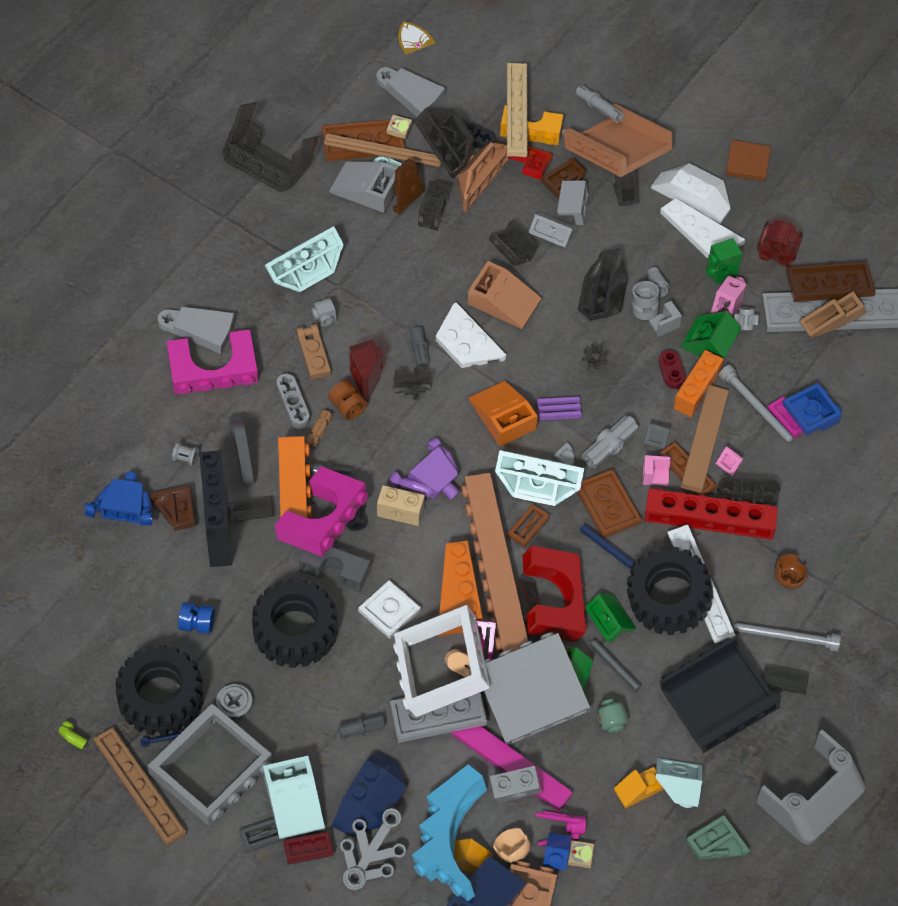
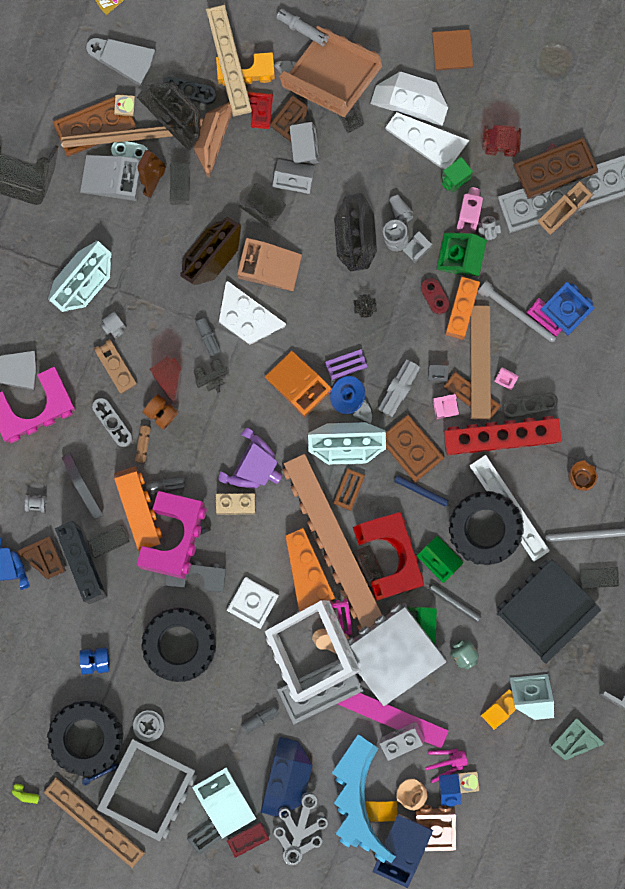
camera: 15 degrees left, 25 degrees up
(450, 270) = (211, 252): none -> dark brown wedge
(552, 433) = (342, 391): none -> blue dish

